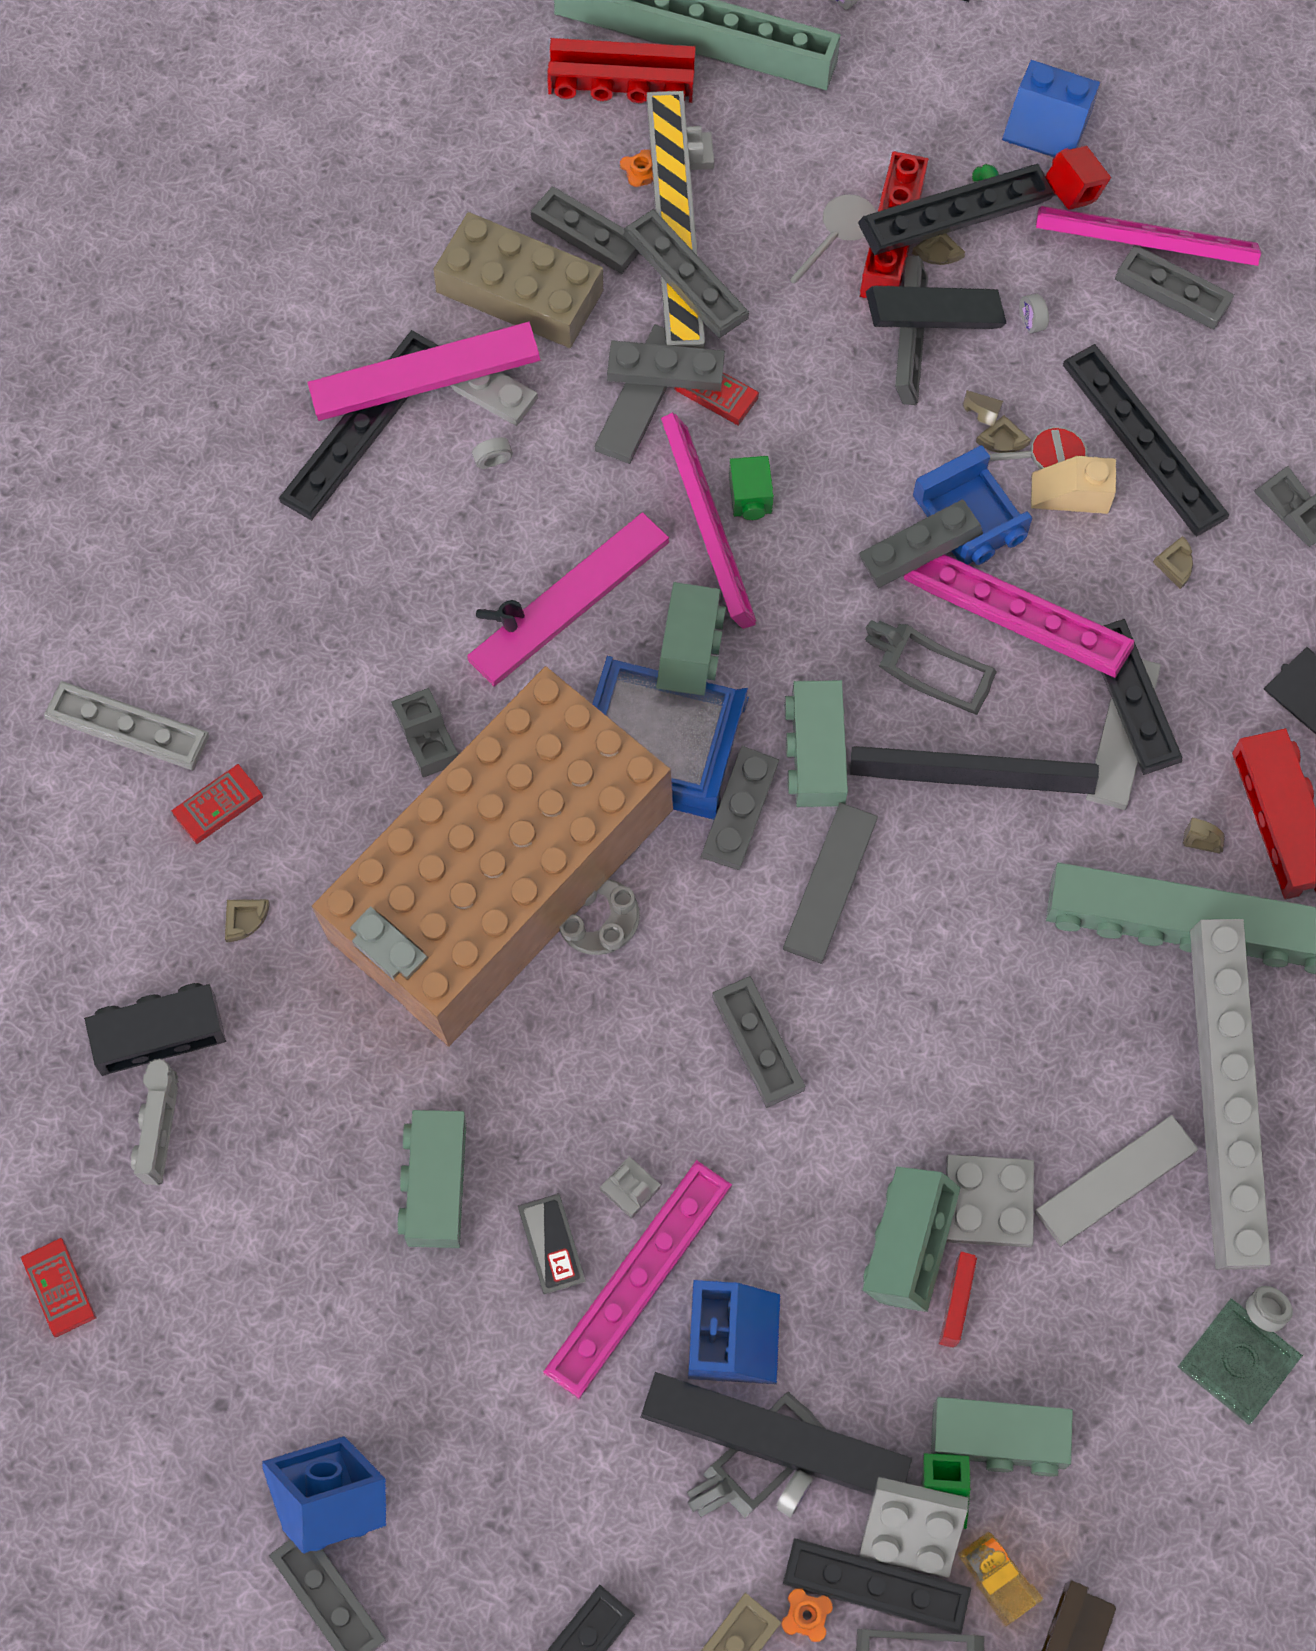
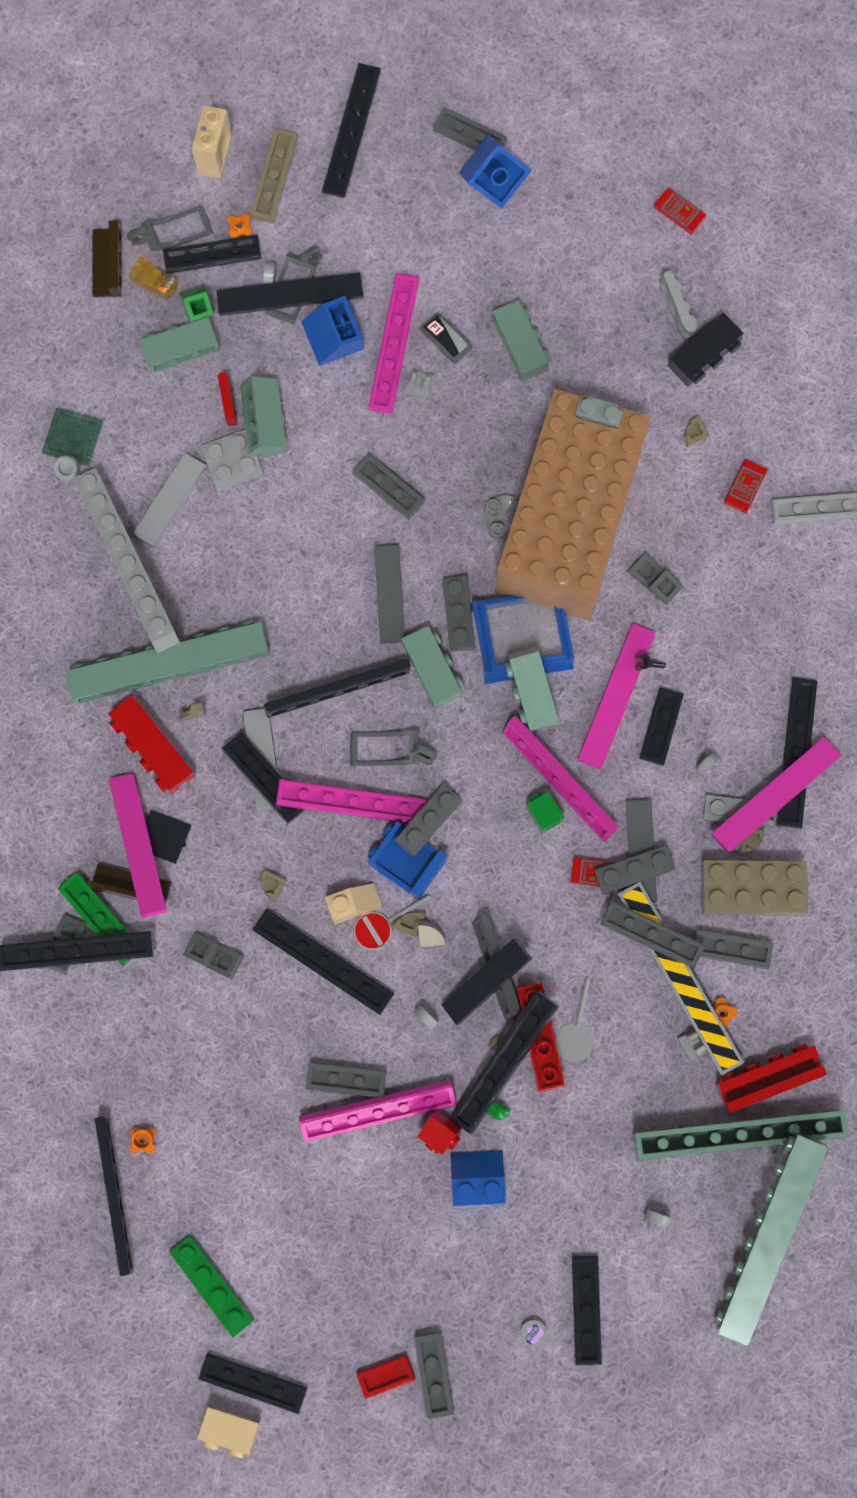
camera: 160 degrees right, 10 degrees up
(527, 534) = (661, 726): none -> black tile
(913, 1527) = (203, 279): light grey plate -> none

